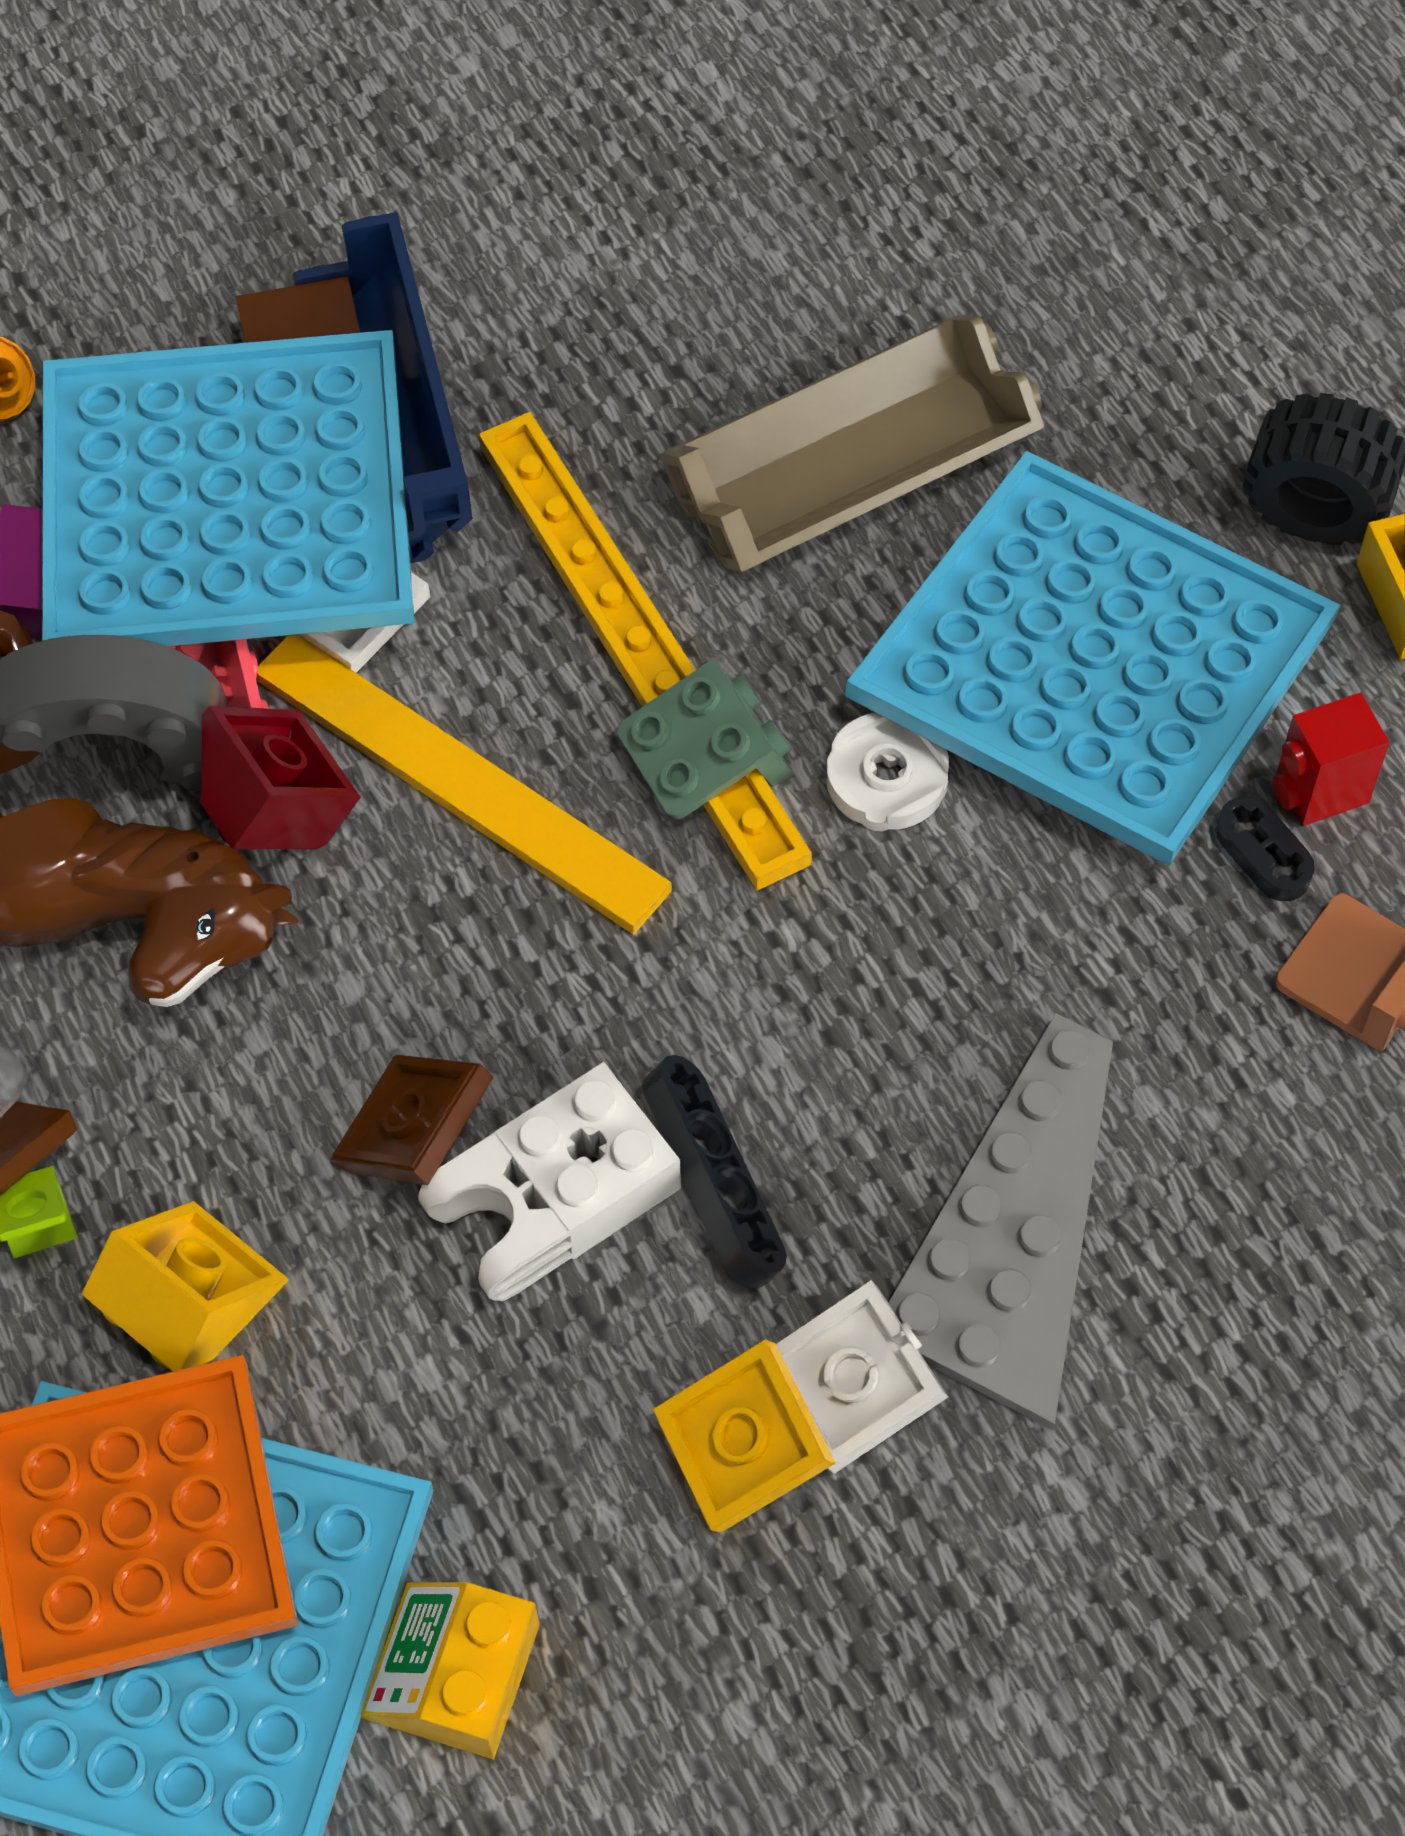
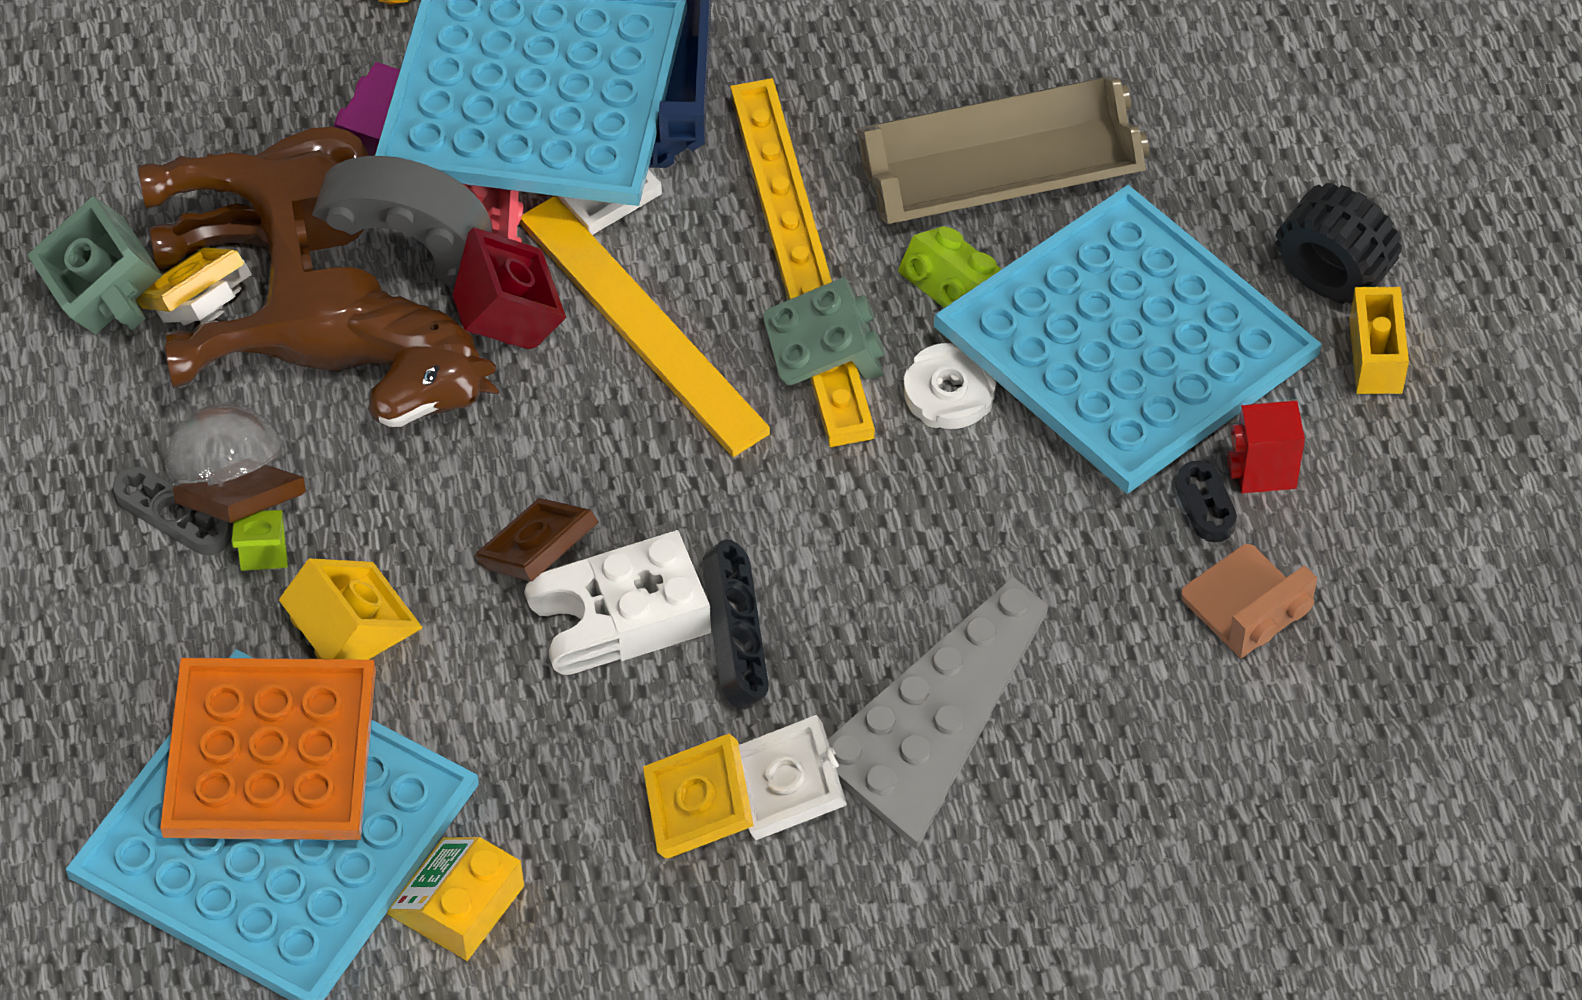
camera: 15 degrees right, 5 degrees down
(833, 612) = (945, 265): none -> lime bracket

